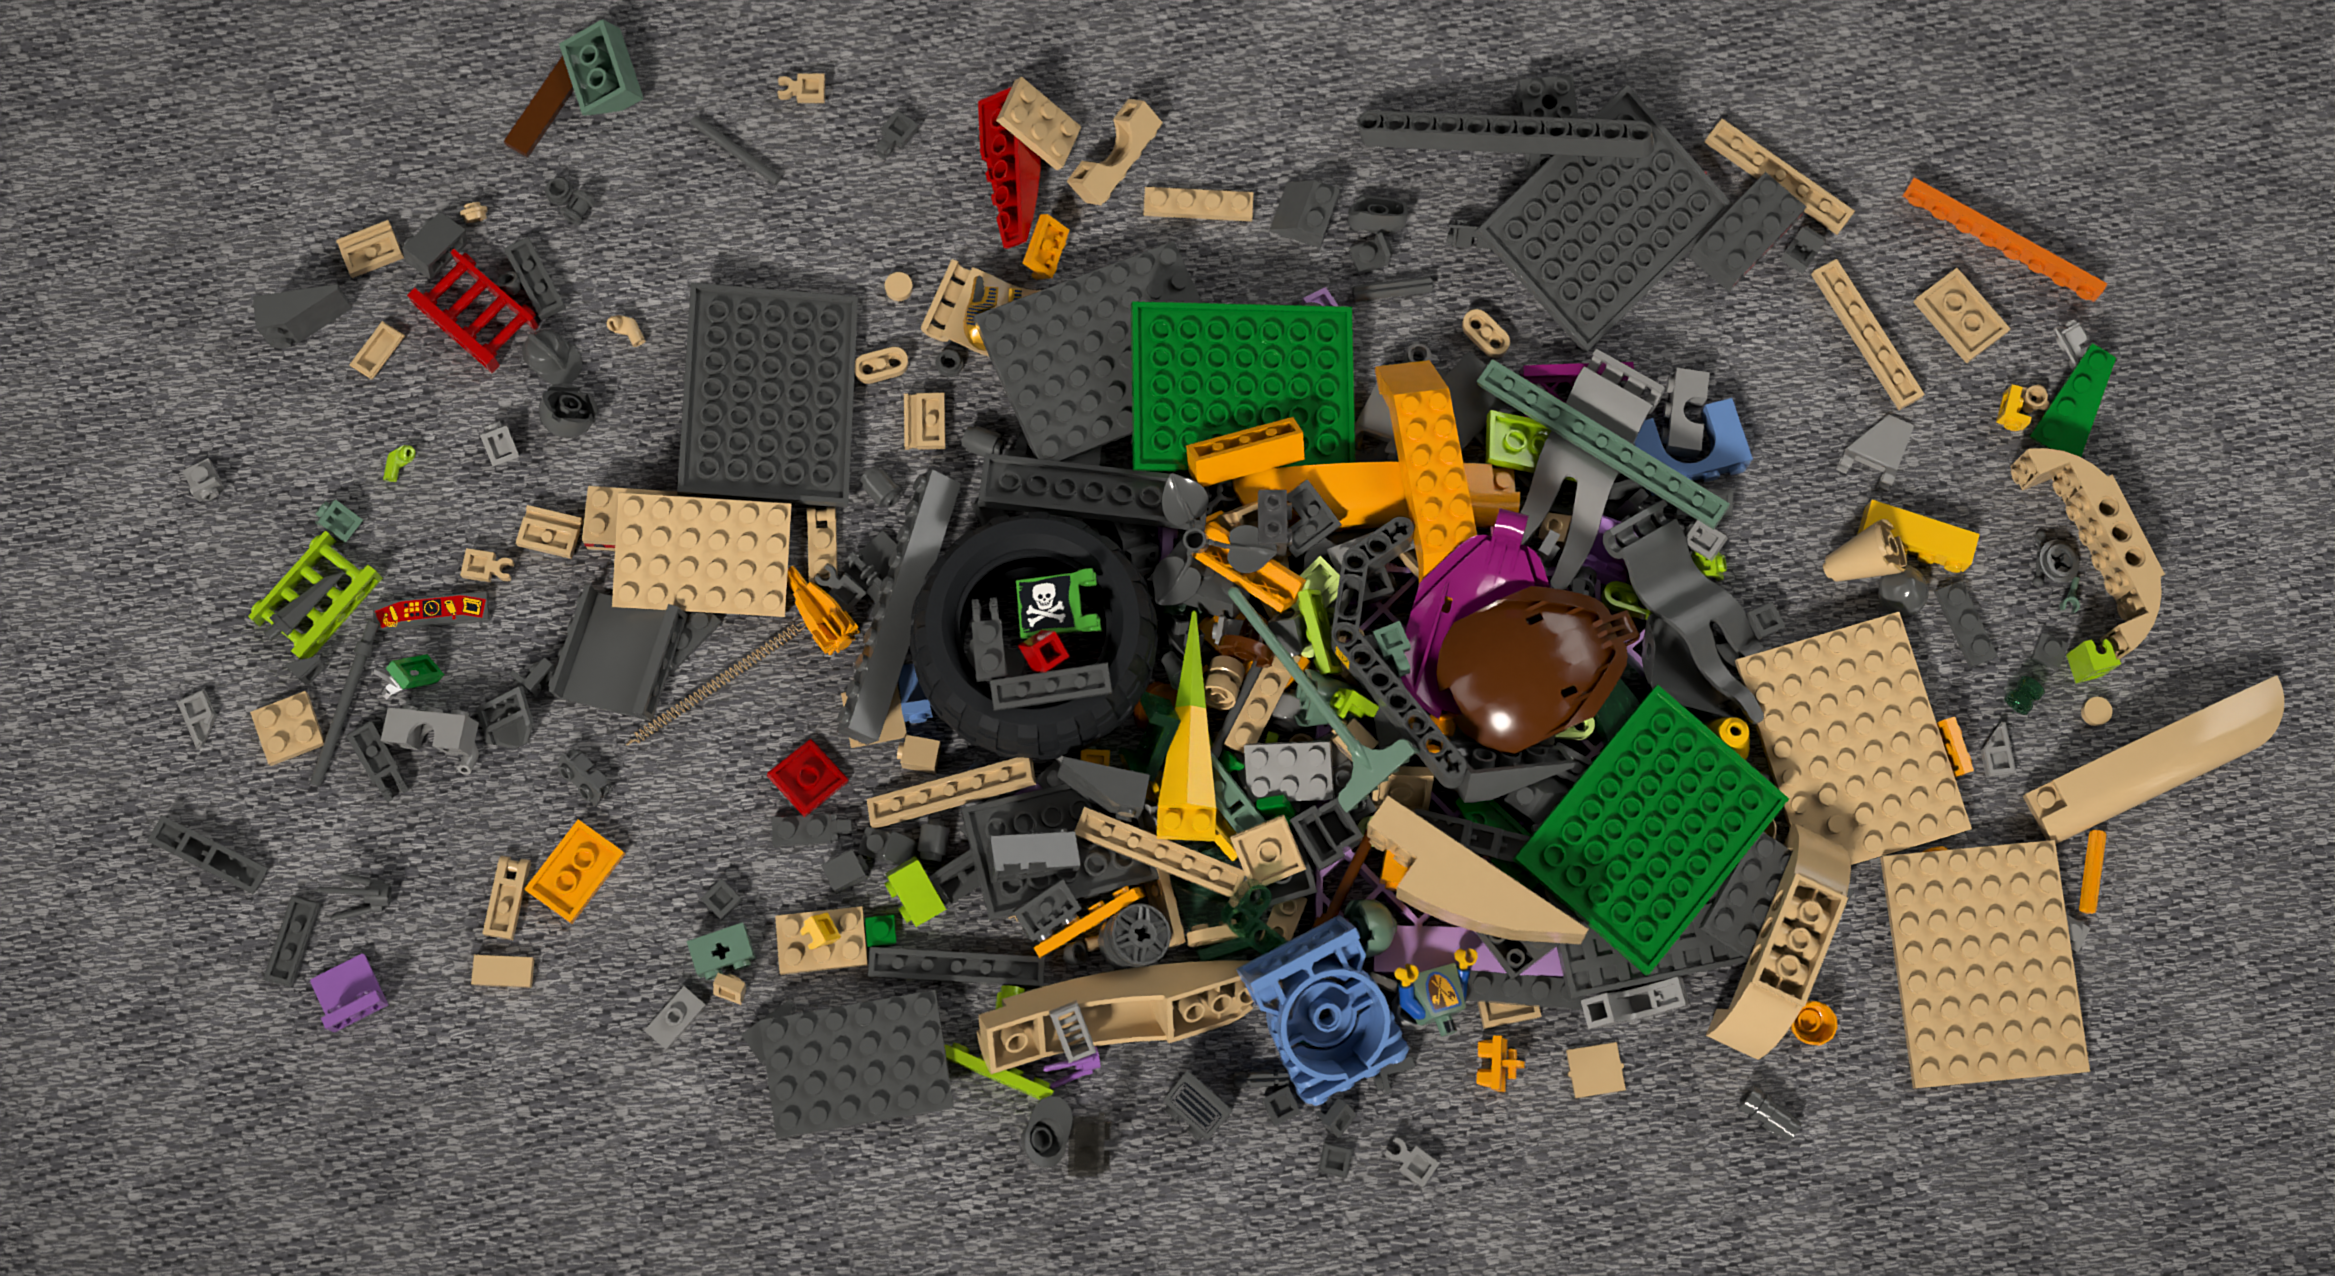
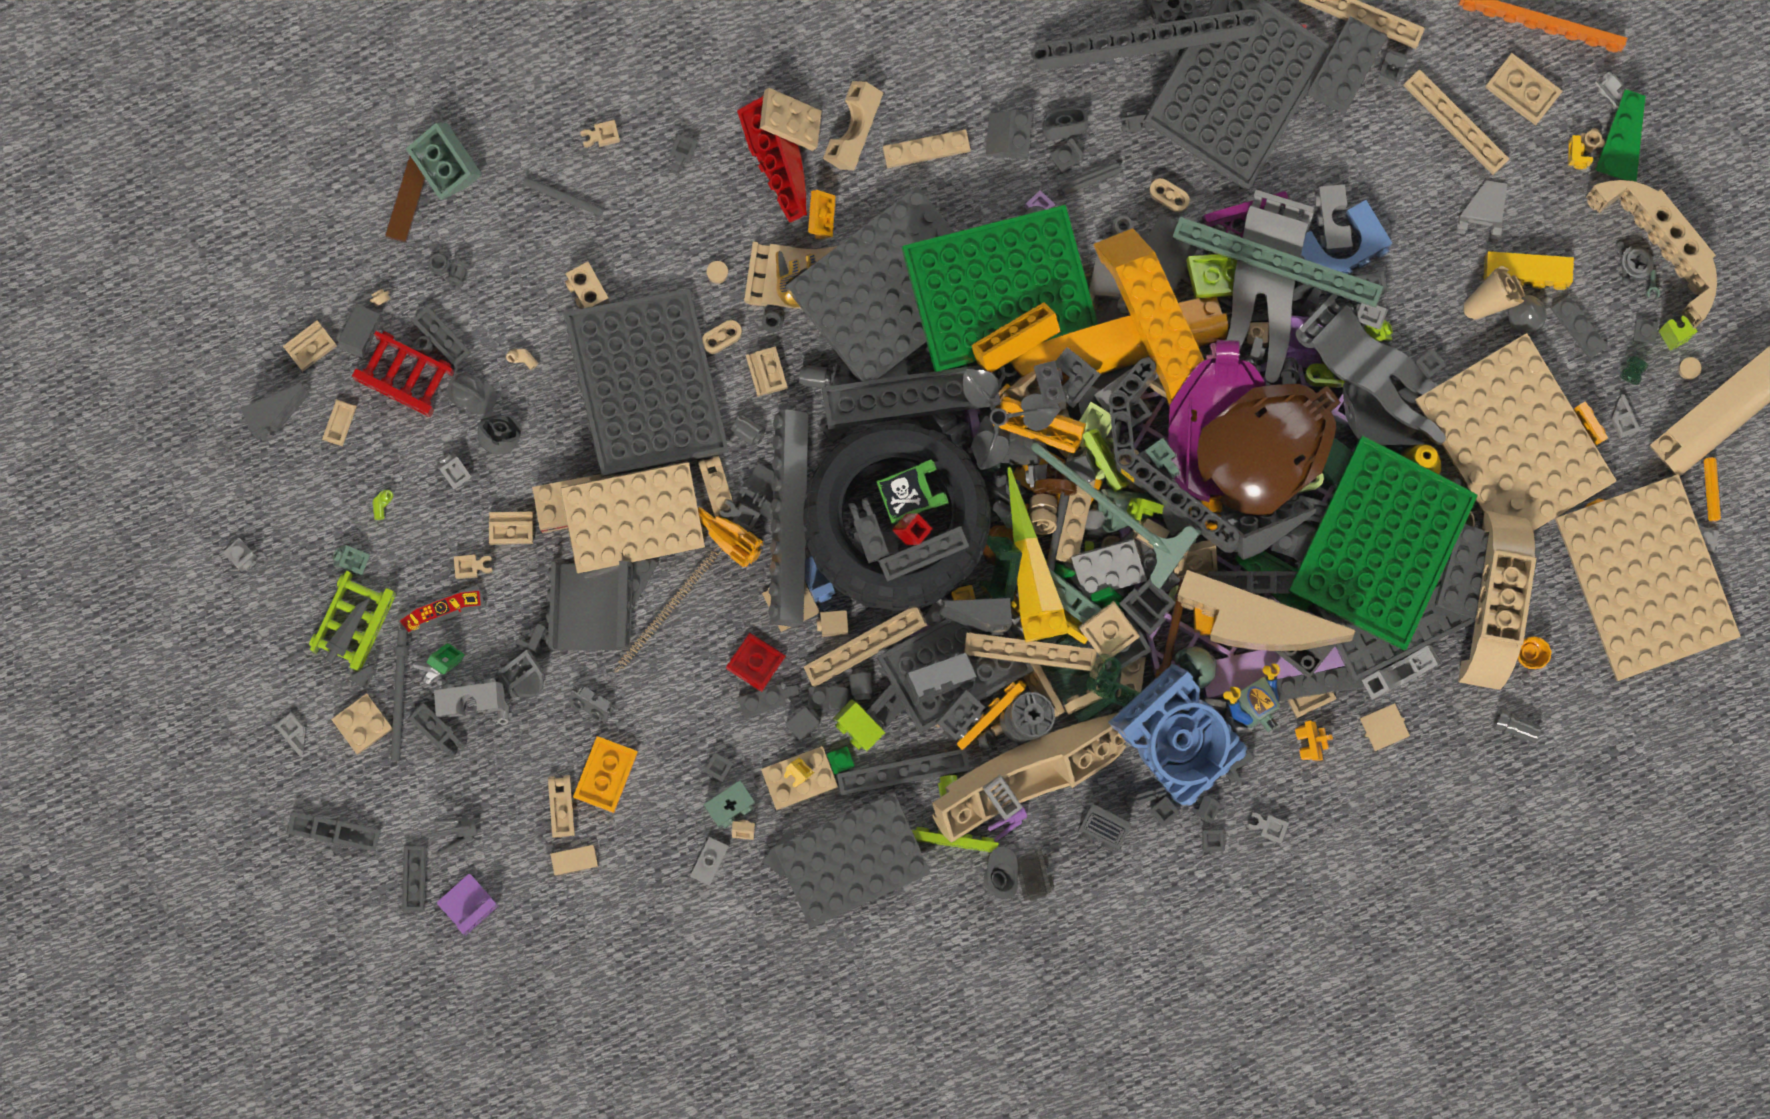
camera: 10 degrees left, 5 degrees up
(736, 263) = (591, 286): none -> tan brick

